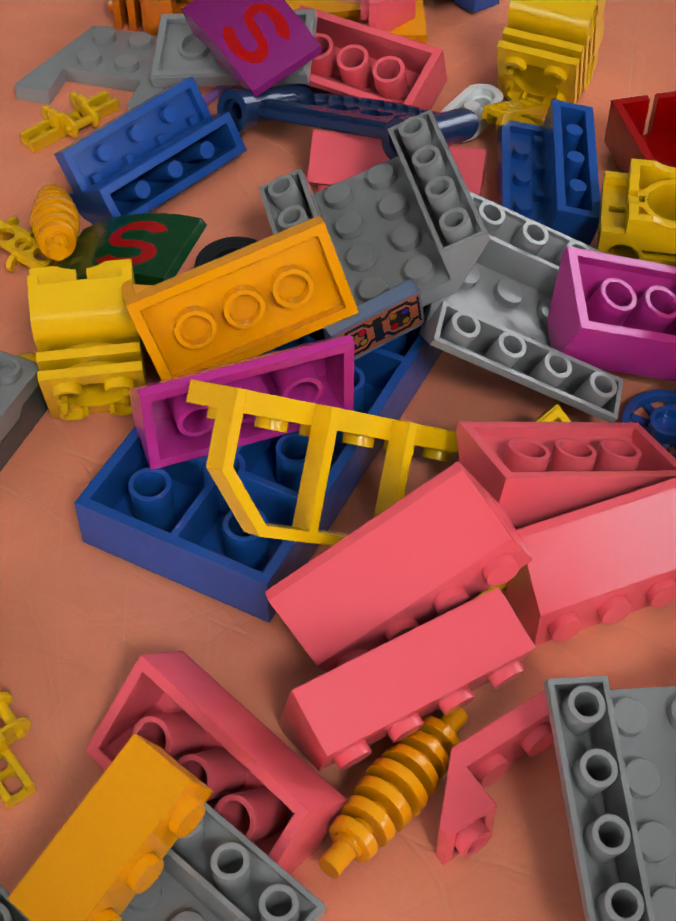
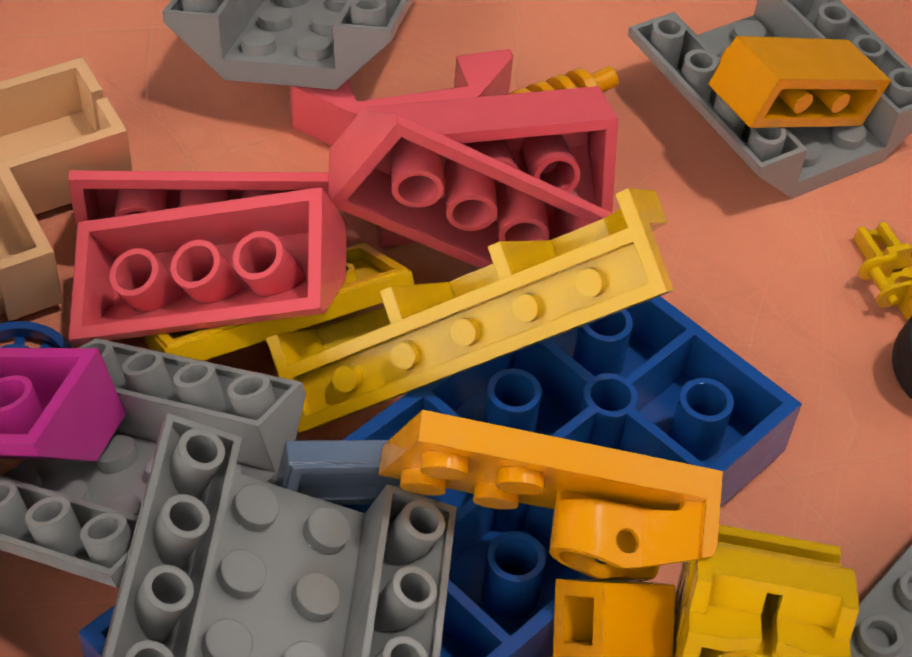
camera: 165 degrees left, 0 degrees up
(179, 430) = (589, 383): dark pink slope -> none
(250, 770) = (703, 194): coral slope -> none

